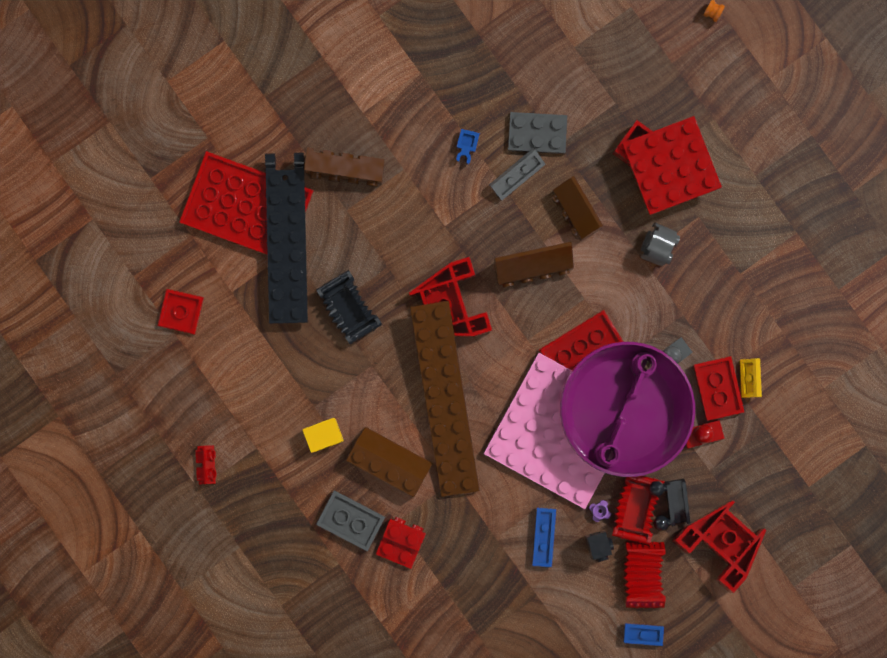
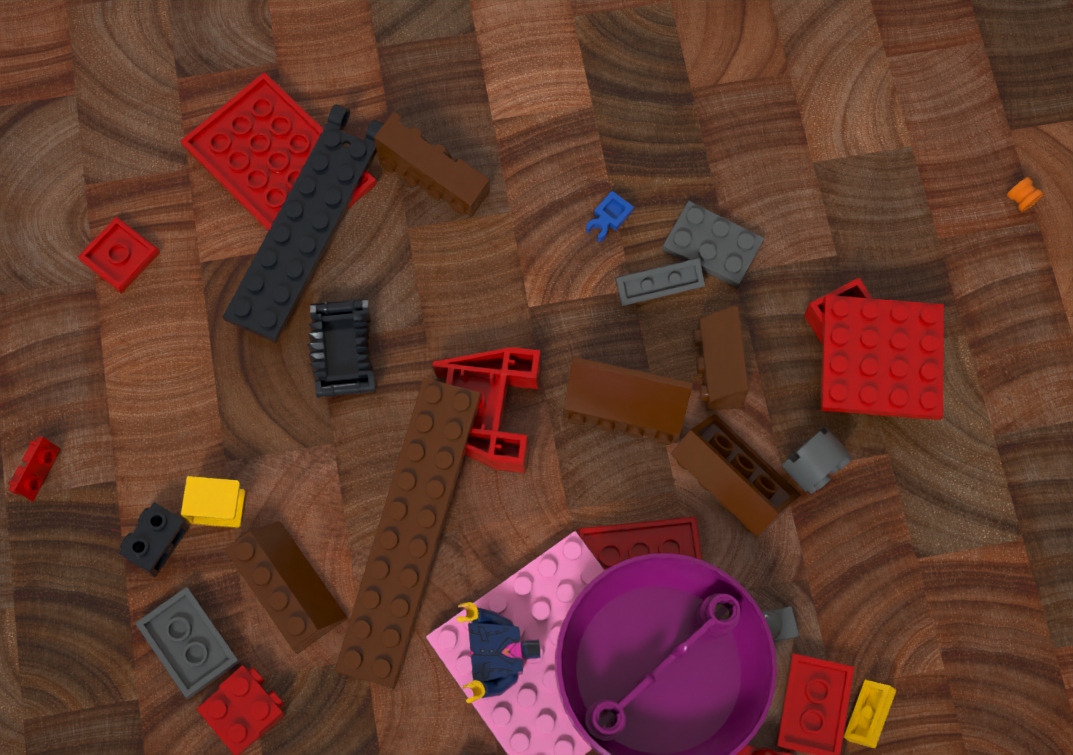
camera: 25 degrees right, 15 degrees down
(300, 472) = (153, 539): none -> black brick
(528, 446) = (494, 652): none -> dark blue torso
(615, 274) = (735, 474): none -> reddish brown slope

